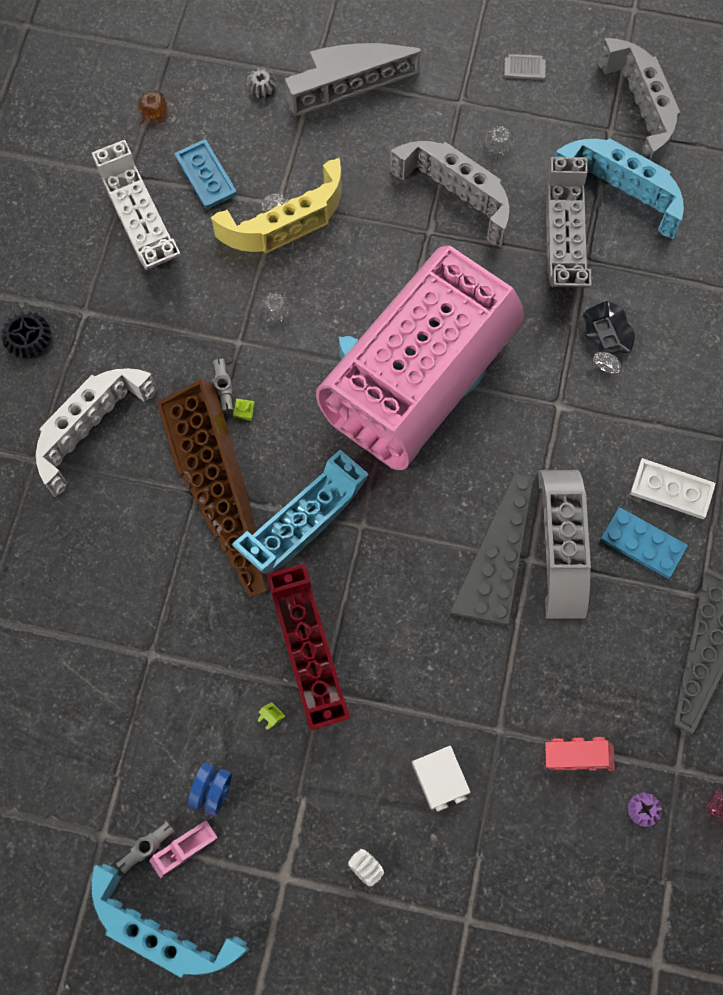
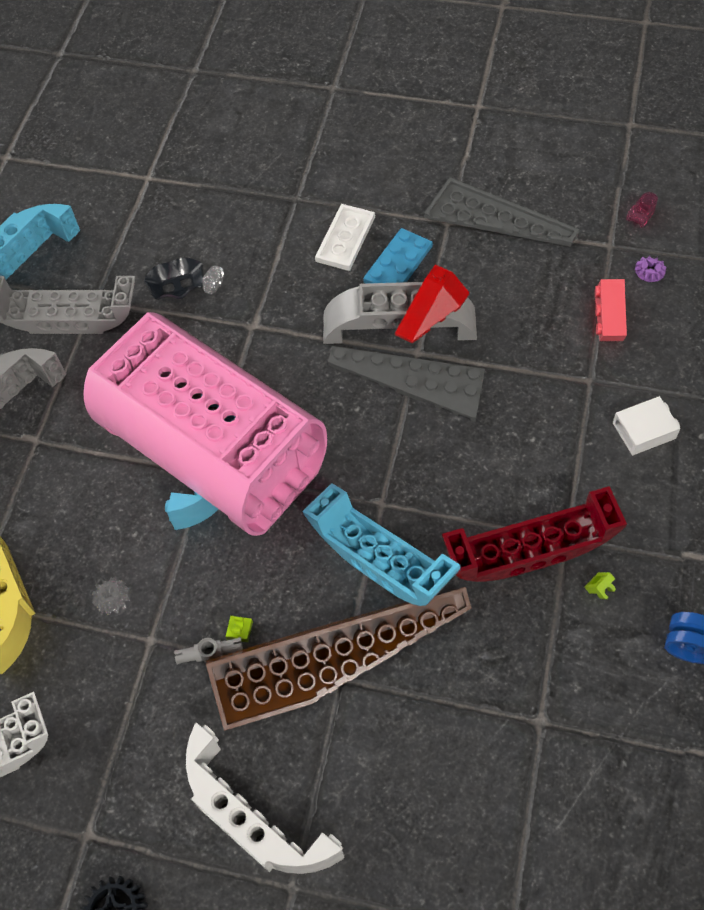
camera: 85 degrees left, 10 degrees down
(559, 560) = (435, 300): none -> red wedge

